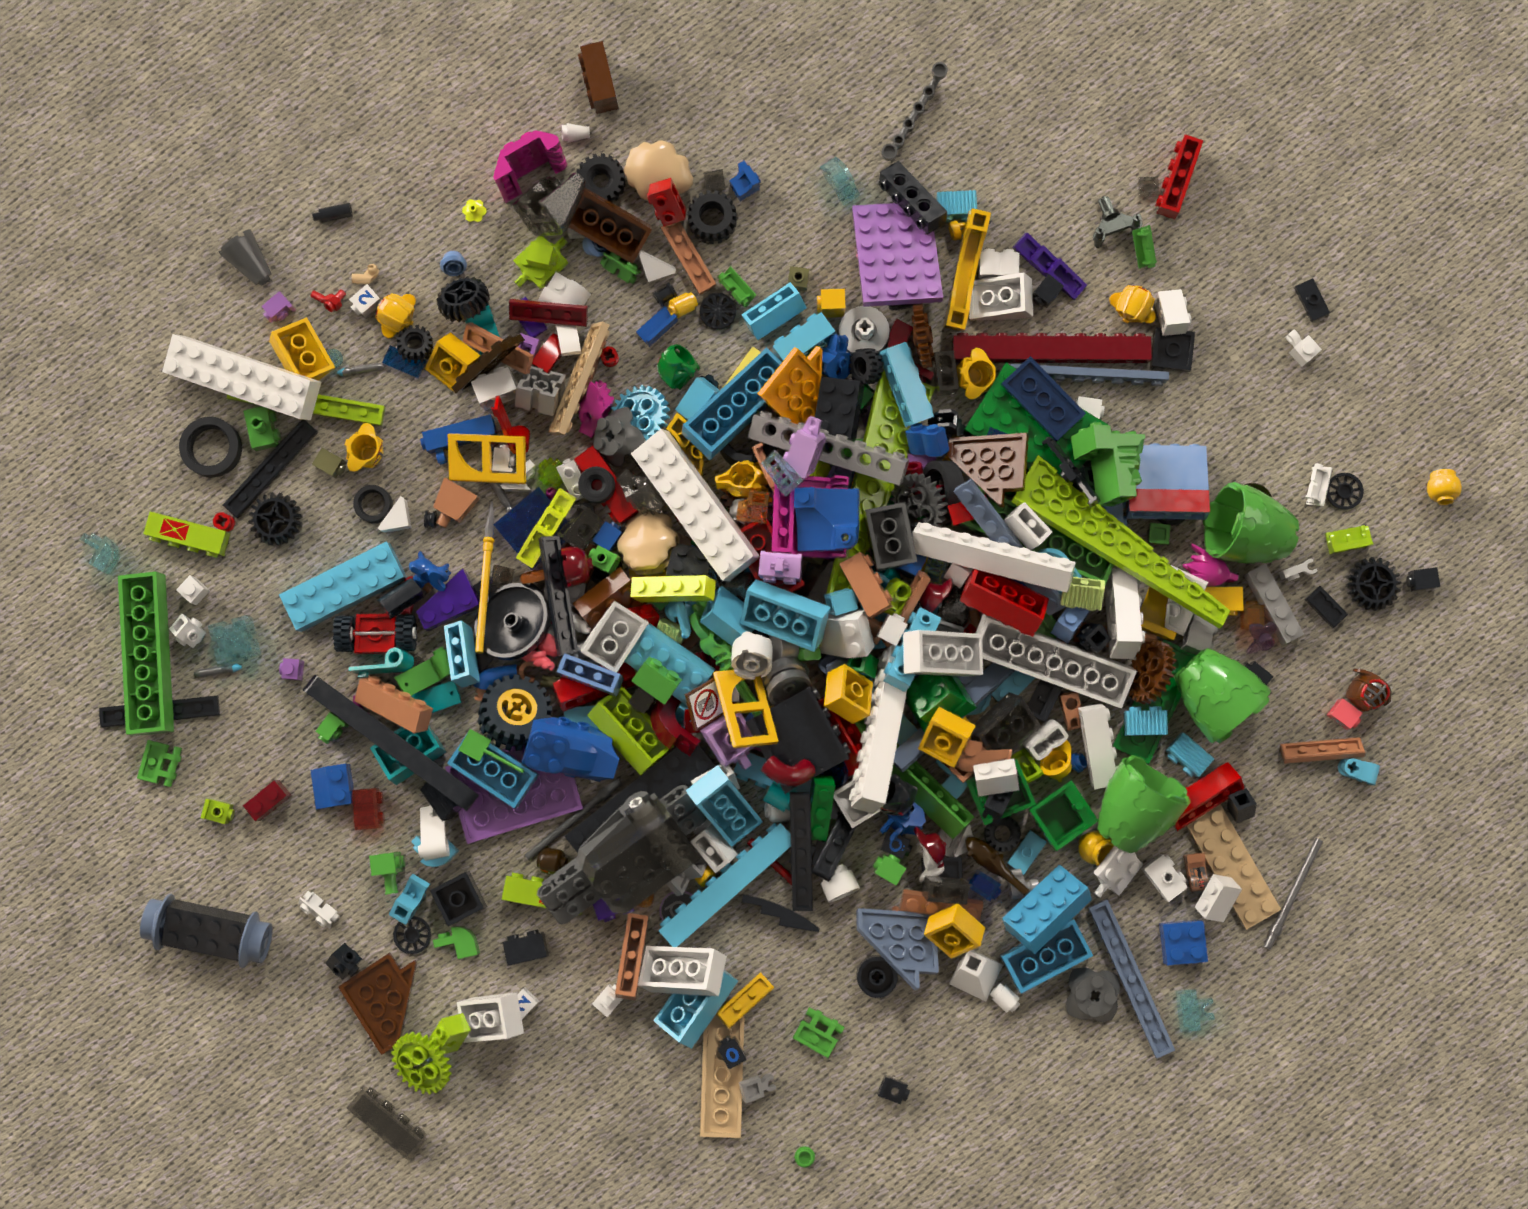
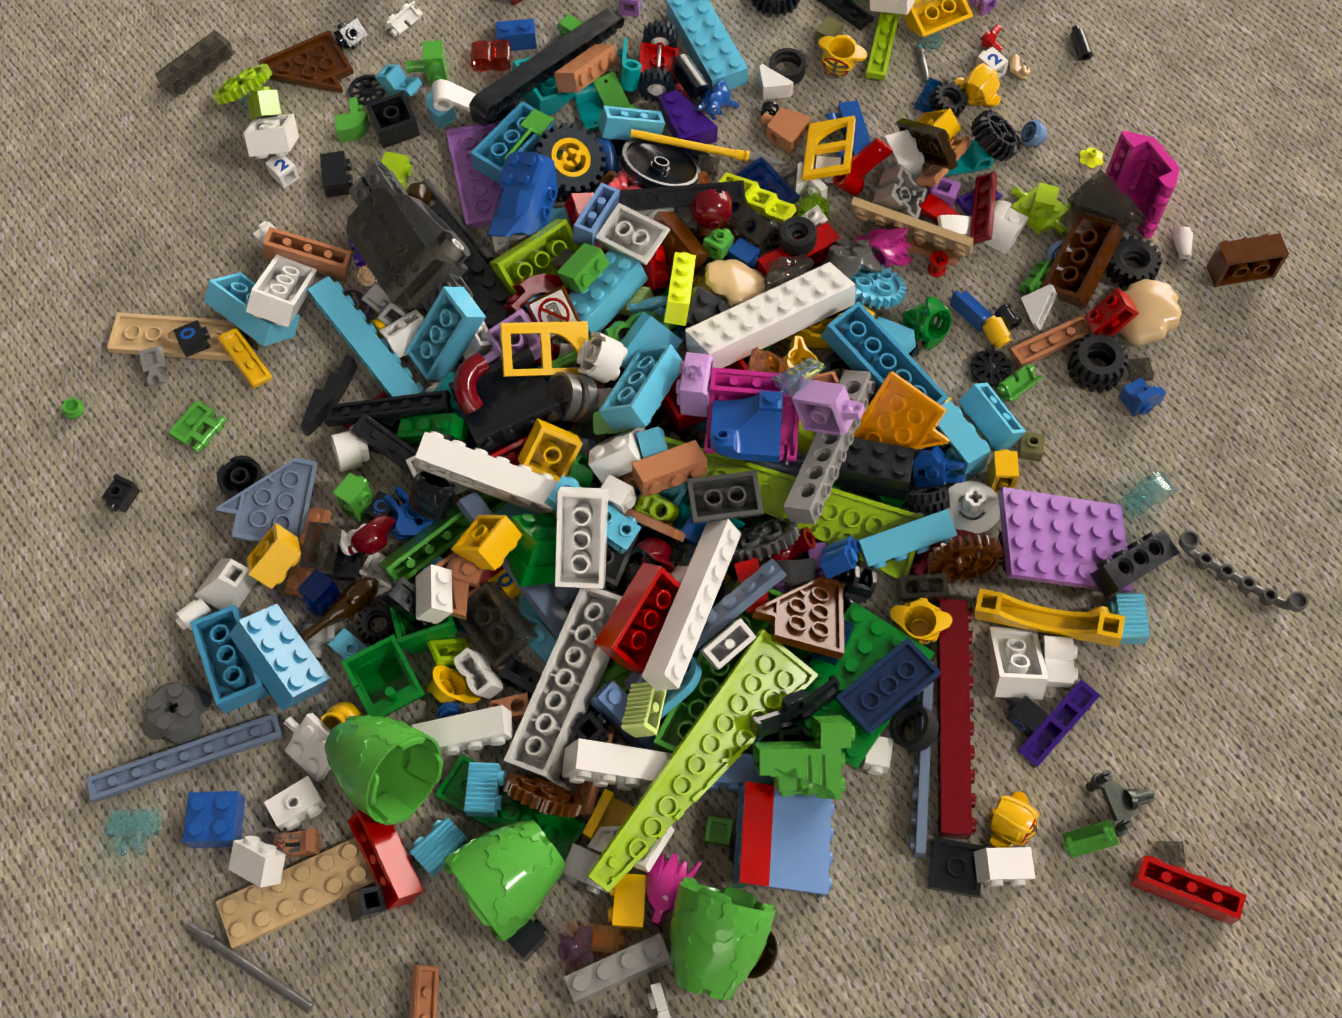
camera: 90 degrees right, 20 degrees down
(1072, 365) = (927, 735): none -> black tyre

